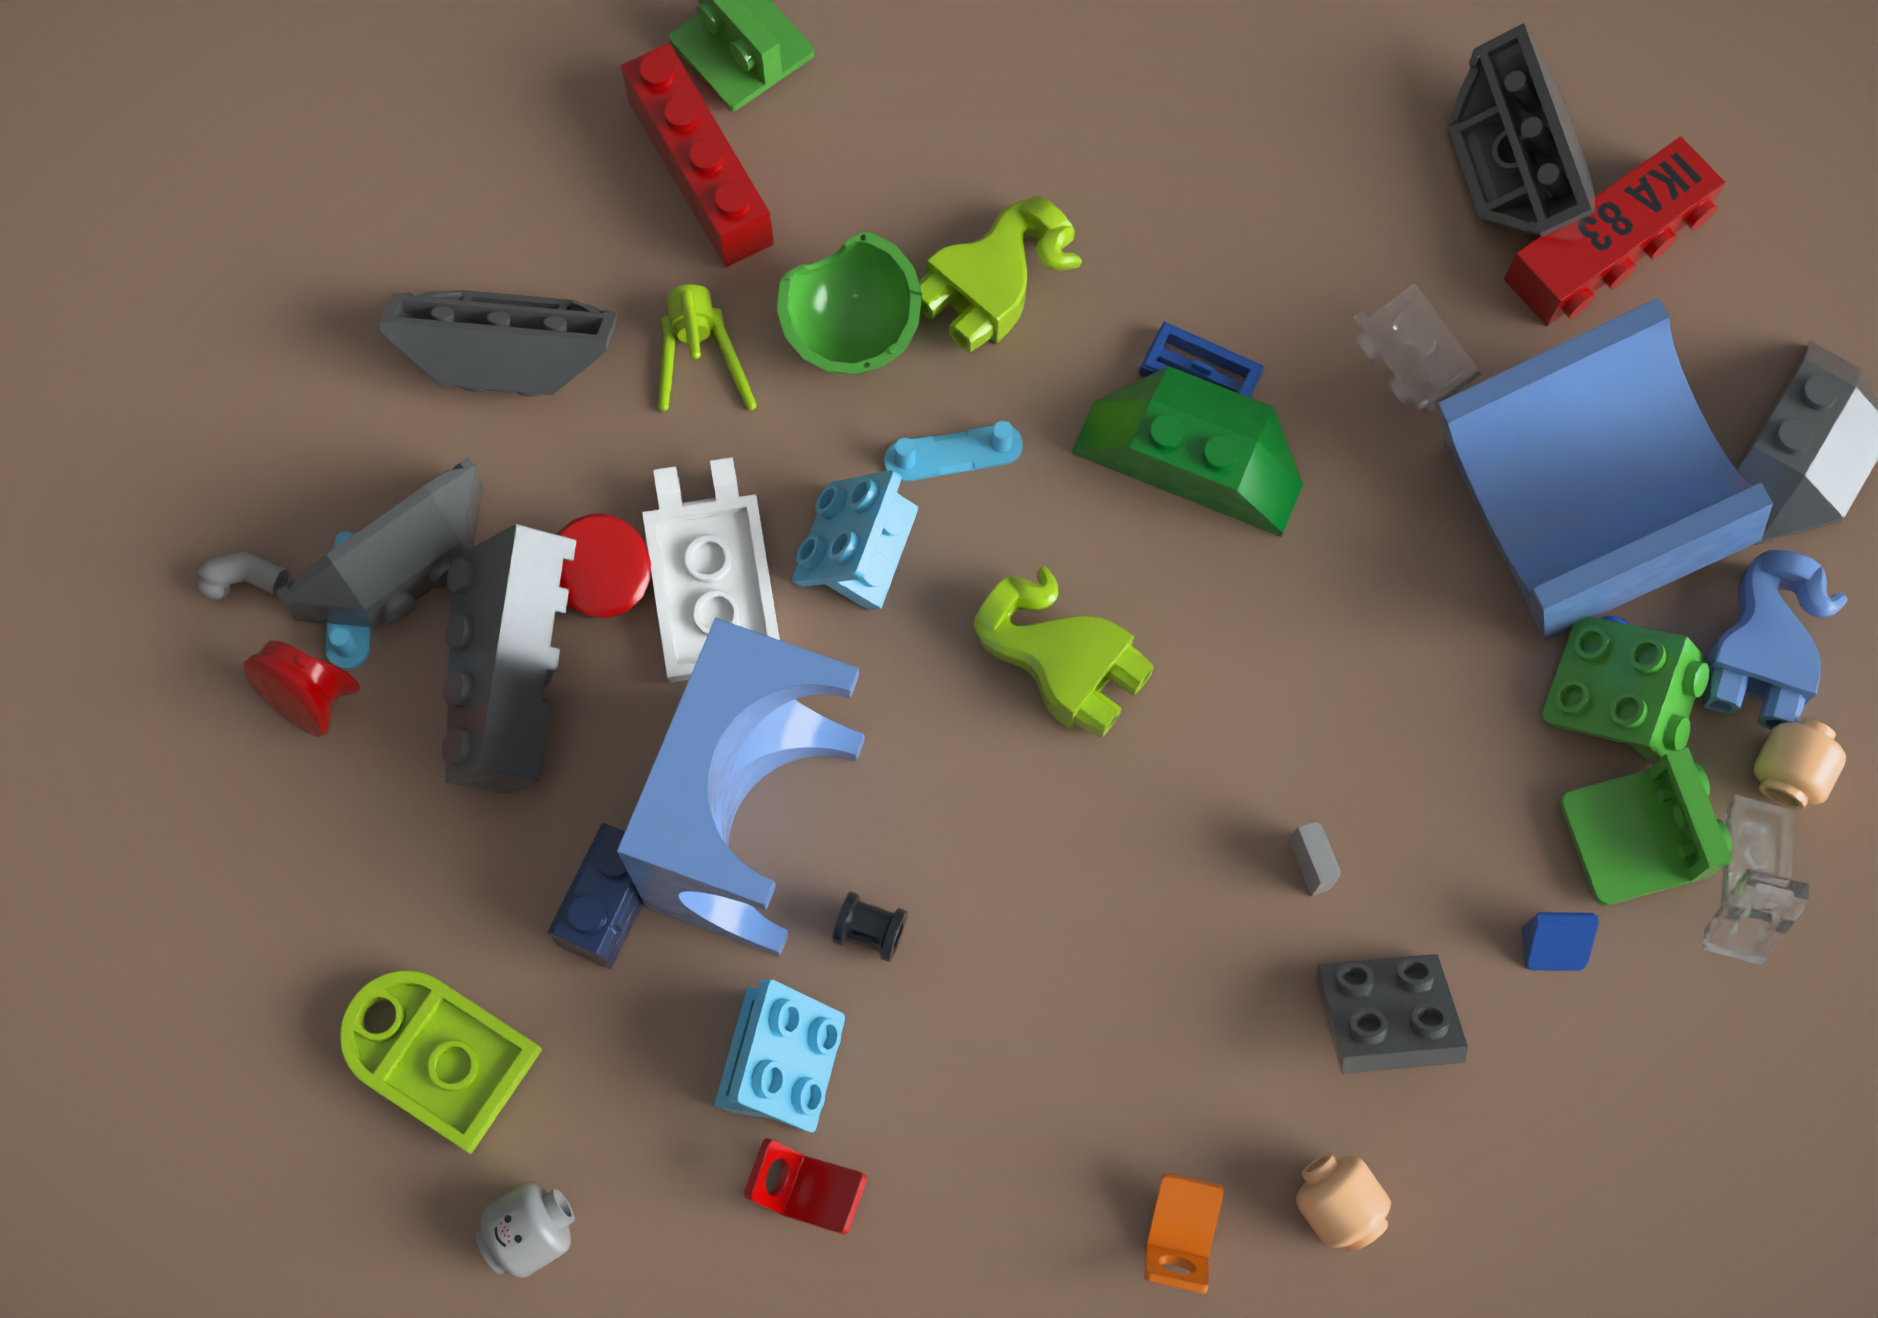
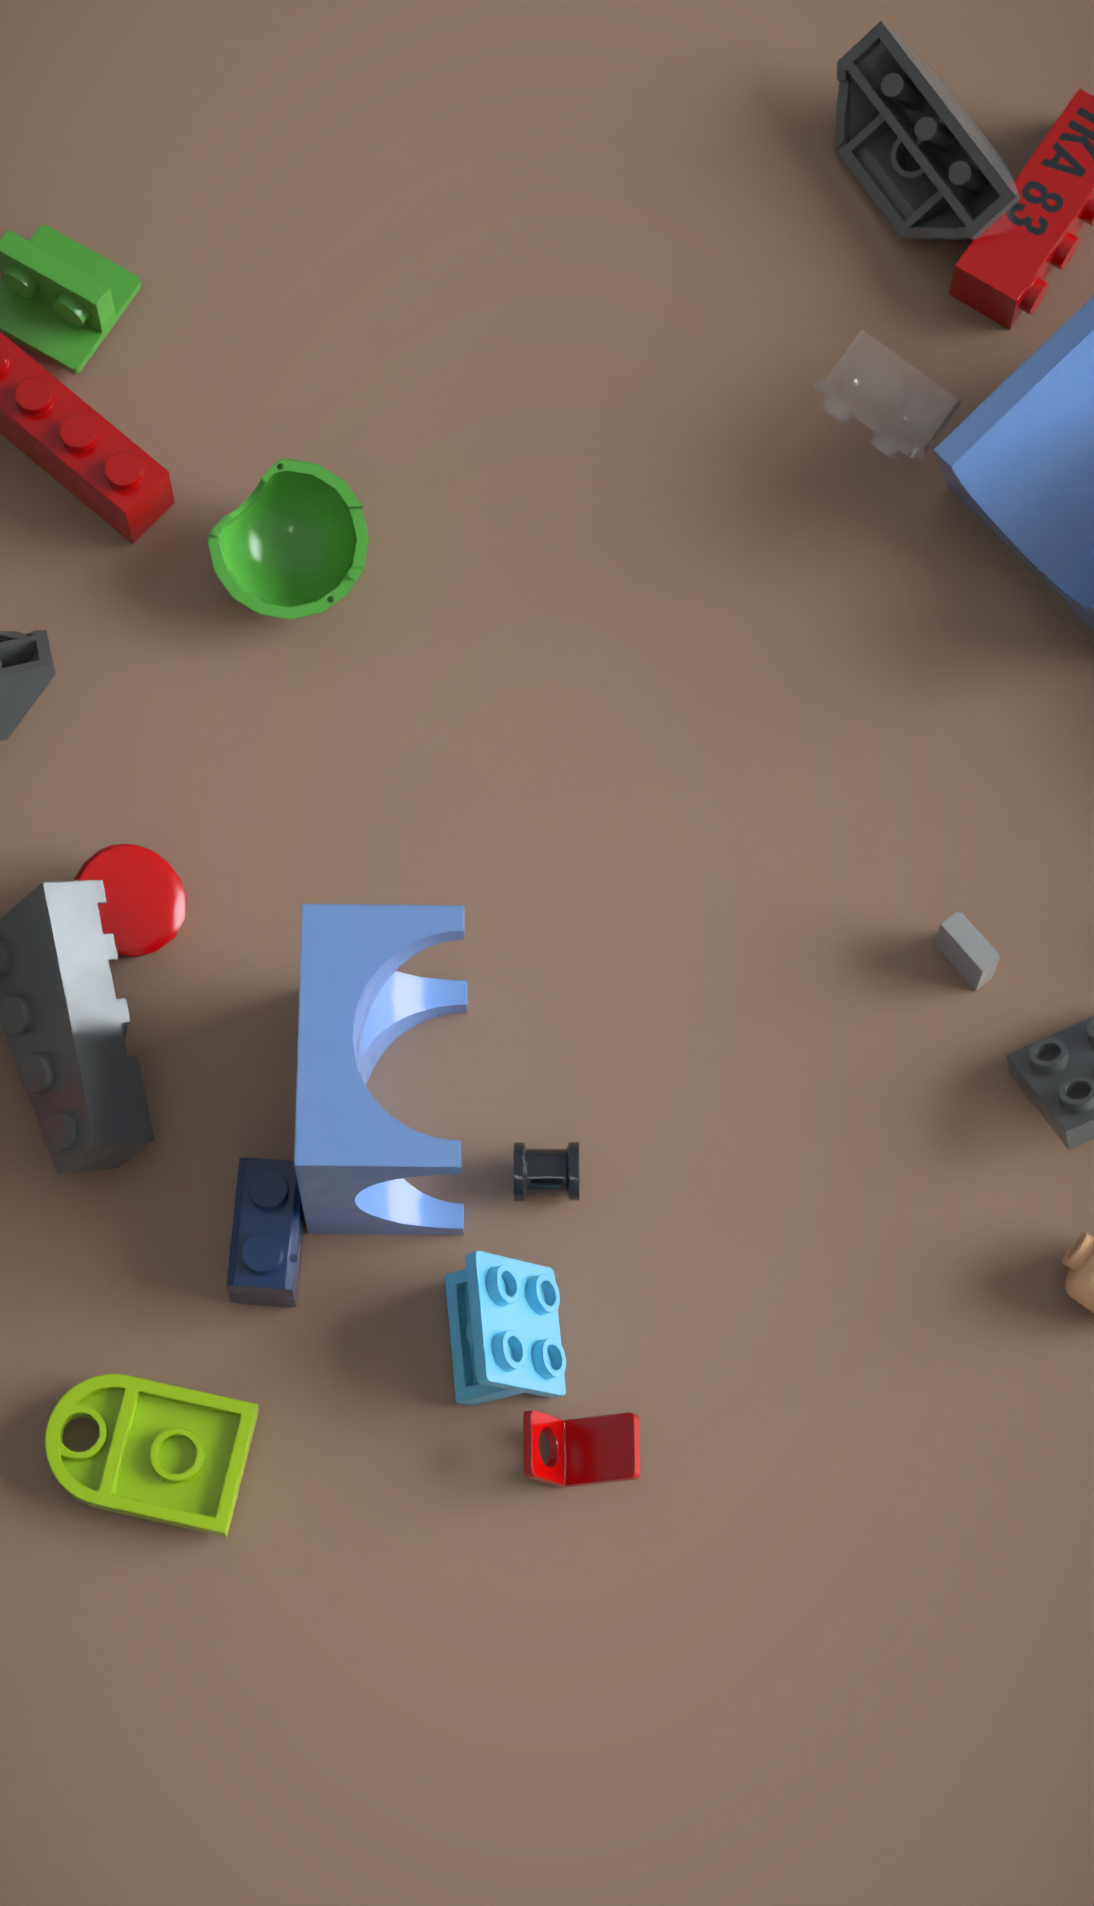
camera: 20 degrees left, 0 degrees up
(525, 1230) = (314, 1588): light grey head -> none
(691, 320) = (125, 612): lime plant -> none
(706, 565) = (240, 869): white tile -> none
(857, 538) = (383, 782): medium azure bracket -> none
(954, 452) = (448, 661): medium azure piece -> none
(989, 276) = (419, 462): lime hips -> none
(1064, 655) = (641, 832): lime hips -> none
(1182, 1232) = (966, 1358): orange bracket -> none
(1196, 446) = (697, 571): green wedge -> none
(1205, 350) = (667, 511): blue tile -> none

